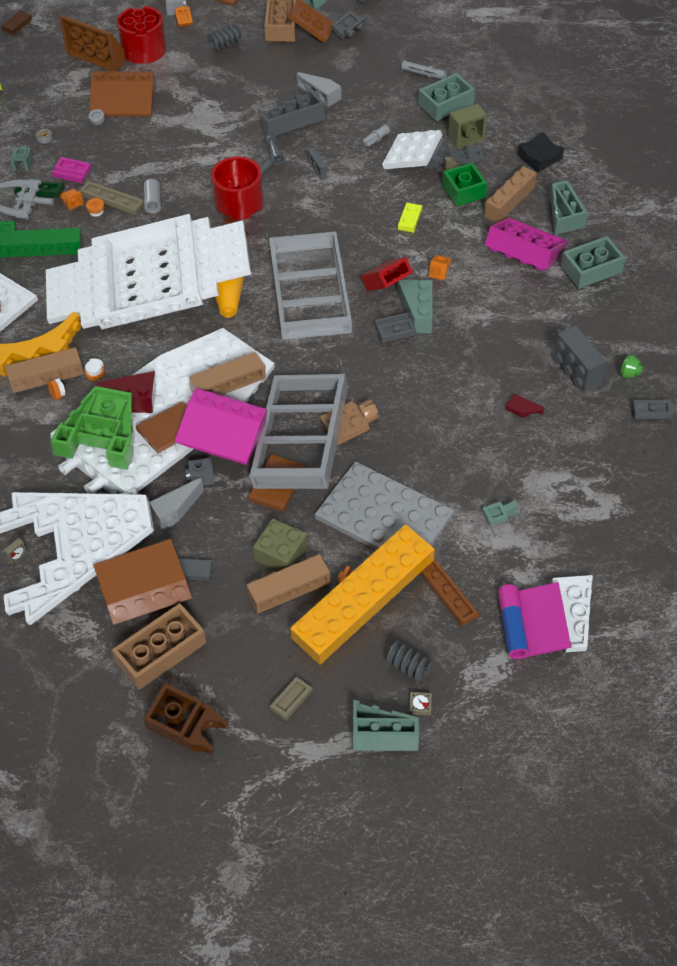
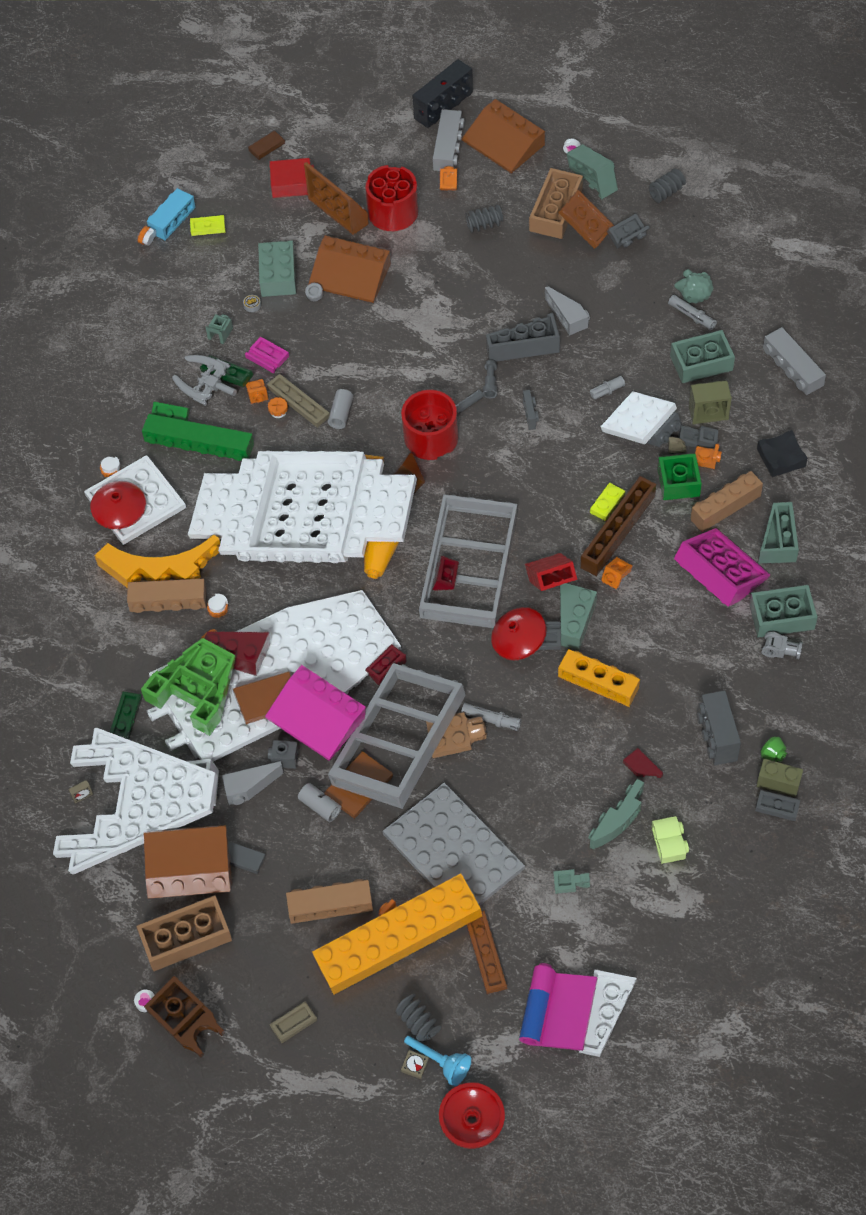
camera: 20 degrees right, 5 degrees up
(37, 475) = (126, 714): none -> dark green tile
(45, 39) = (288, 177): none -> red brick
(56, 389) = (172, 619): orange piece -> none
(58, 105) = (277, 268): none -> sand green brick
(136, 718) = (142, 999): none -> white tile
(230, 375) = (343, 655): medium nougat brick -> none
(248, 505) = (319, 802): none -> light grey pin
(263, 386) = (378, 669): none -> dark red slope
(280, 546) = (335, 858): olive brick -> none
(293, 298) = (445, 574): none -> dark red slope
(375, 329) = (523, 639): none -> red dish
(378, 399) = (496, 718): none -> light grey pin
(383, 730) = (366, 1082): sand green wedge -> none
(419, 50) = (695, 286): none -> sand green animal
(428, 230) = (618, 526): none -> reddish brown brick
(458, 347) = (603, 686): none -> light orange brick
(459, 693) = (454, 1066): none -> medium azure piece
(483, 166) = (708, 457): none -> orange bracket
(496, 720) = (471, 1101): none -> red dish
(521, 87) = (794, 361): none -> light grey brick
(521, 451) = (617, 819): none -> sand green slope
(572, 457) = (669, 839): none -> yellowish green brick
(601, 289) = (780, 646): none -> light grey connector
(645, 386) = (779, 778): none -> olive brick

